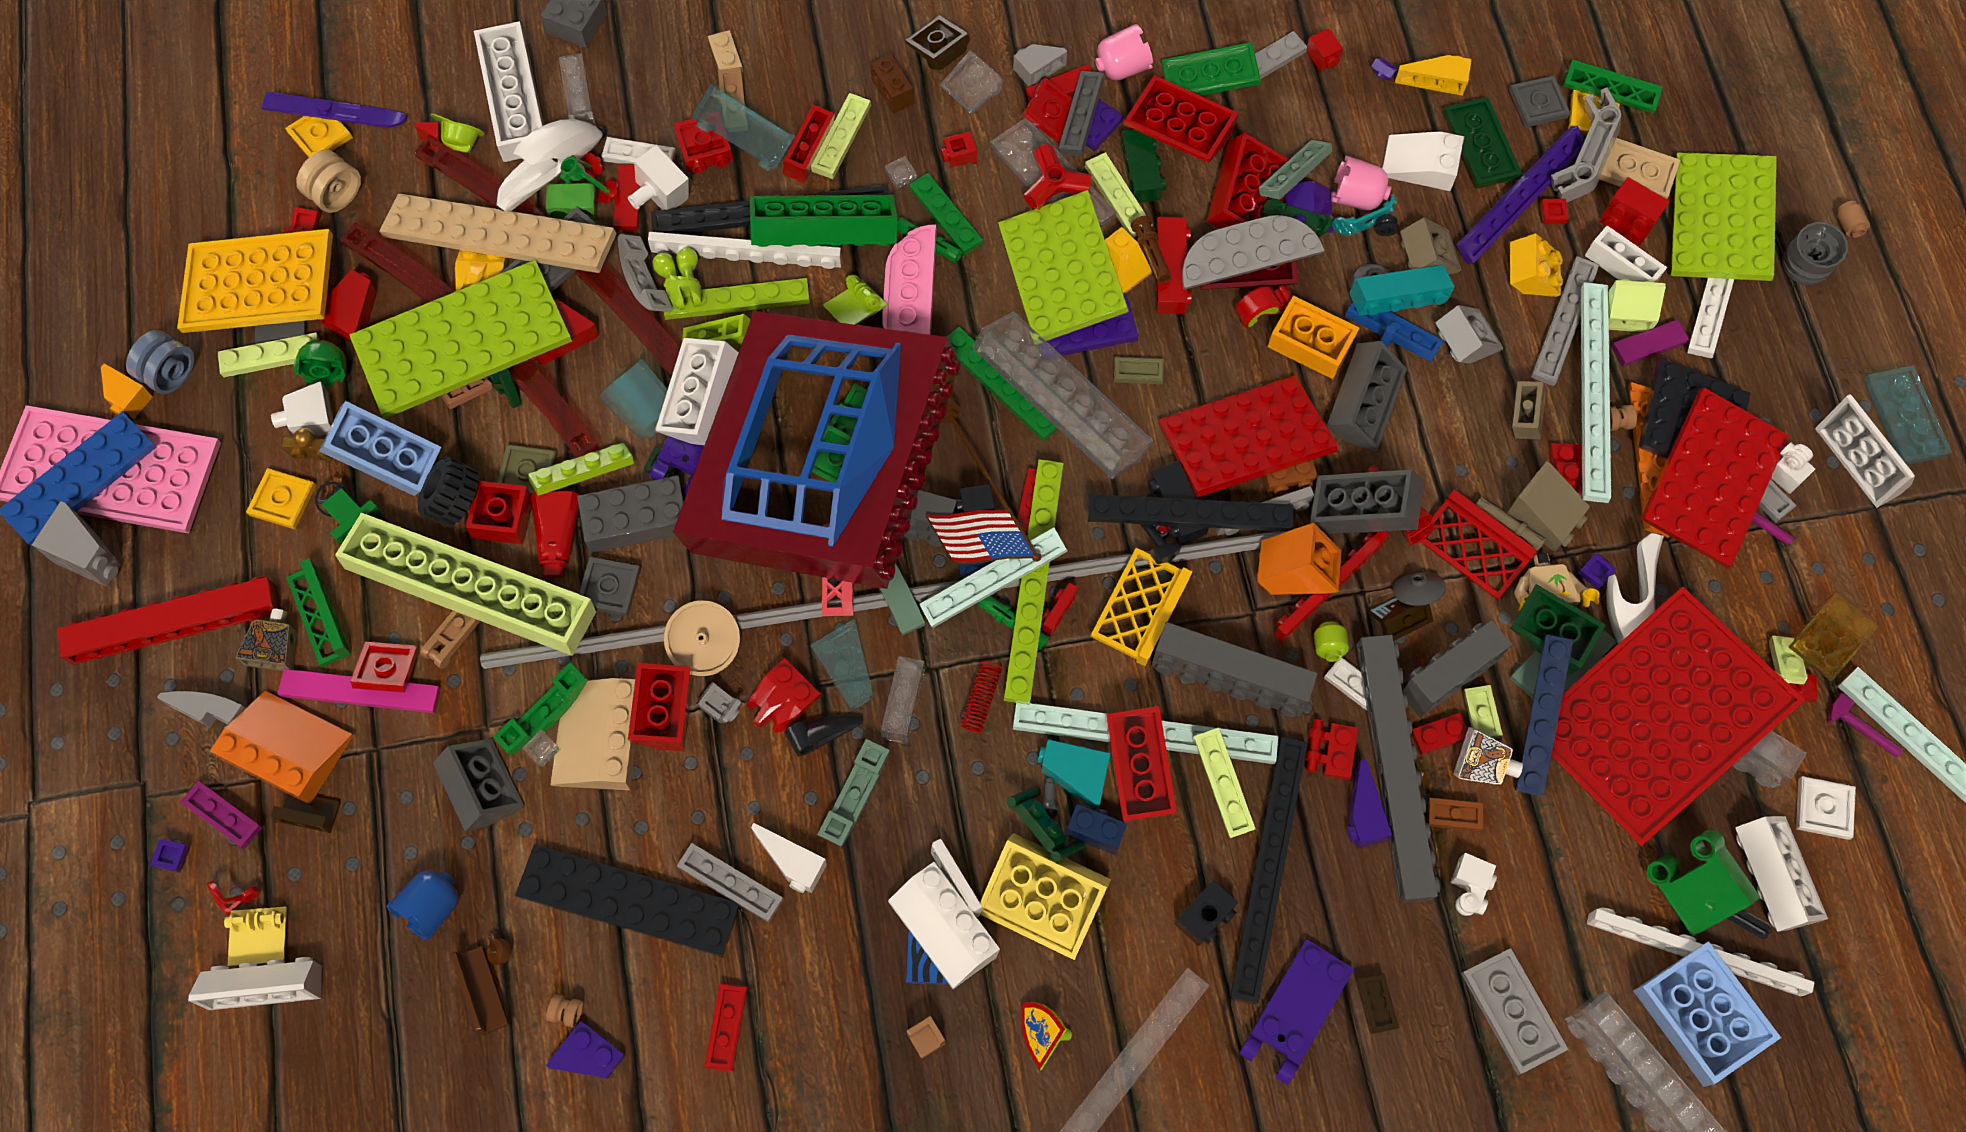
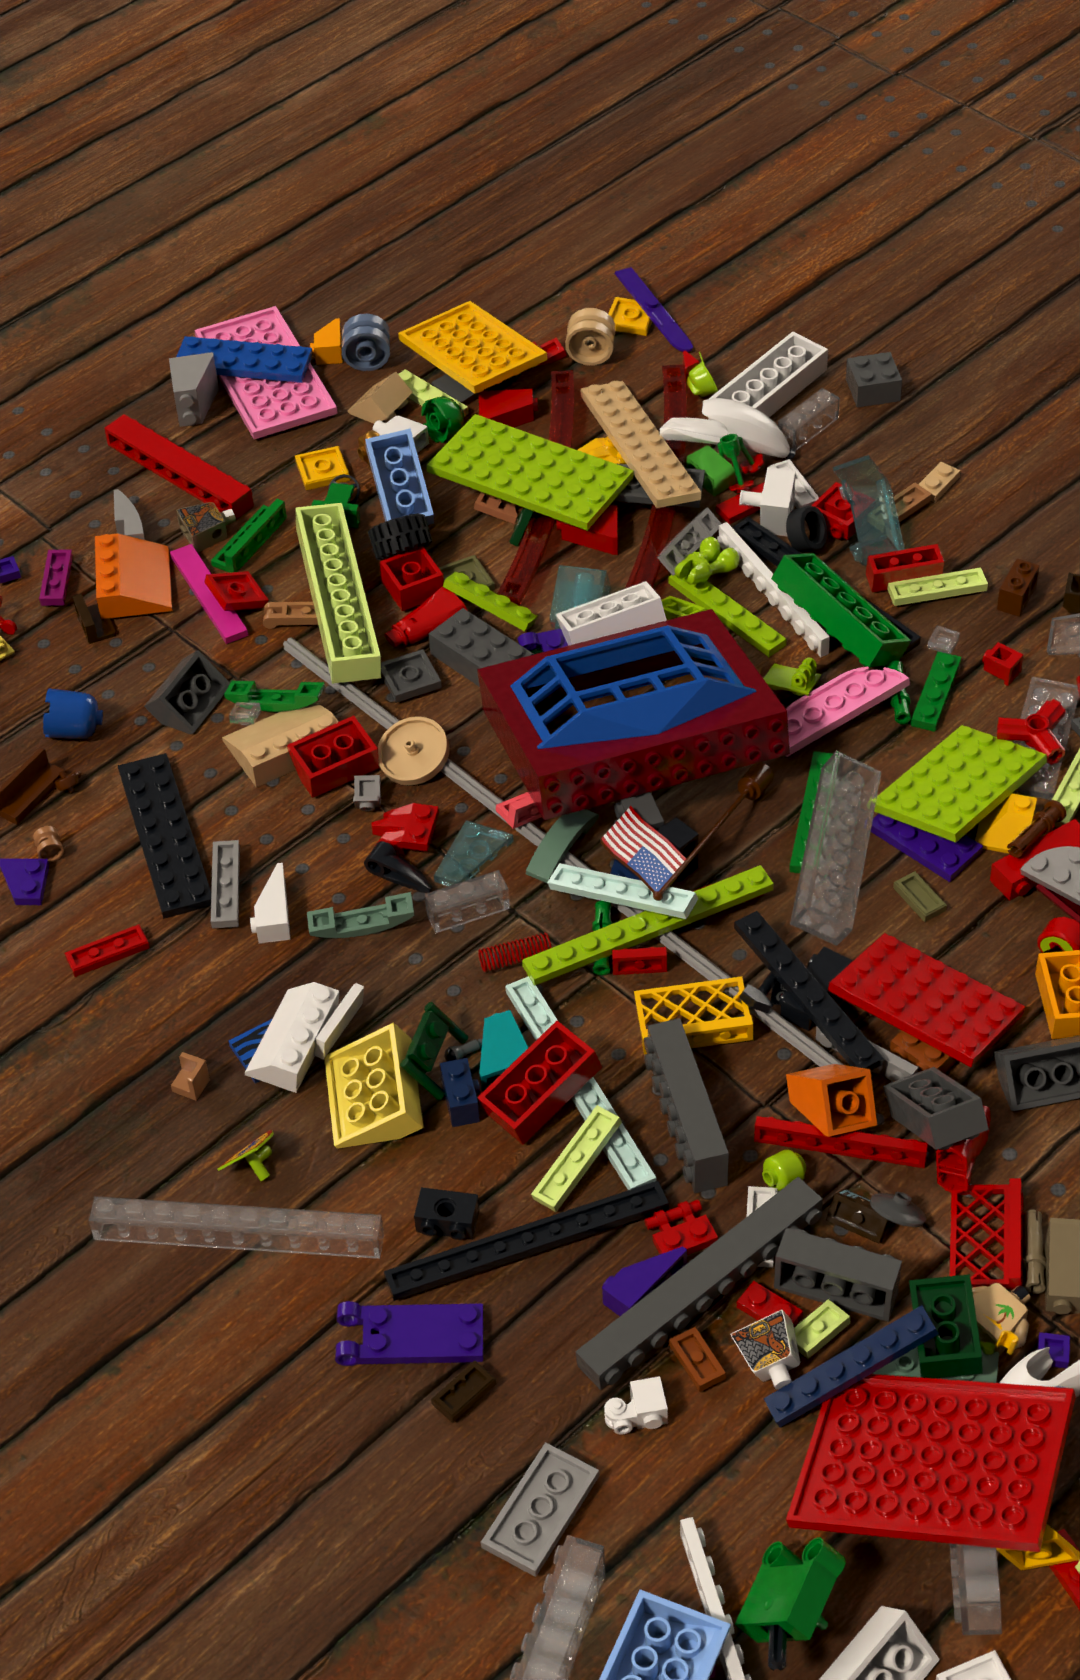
camera: 60 degrees right, 20 degrees down
(241, 396) = (382, 400): none -> tan slope
(708, 181) = (796, 530): none -> black tyre

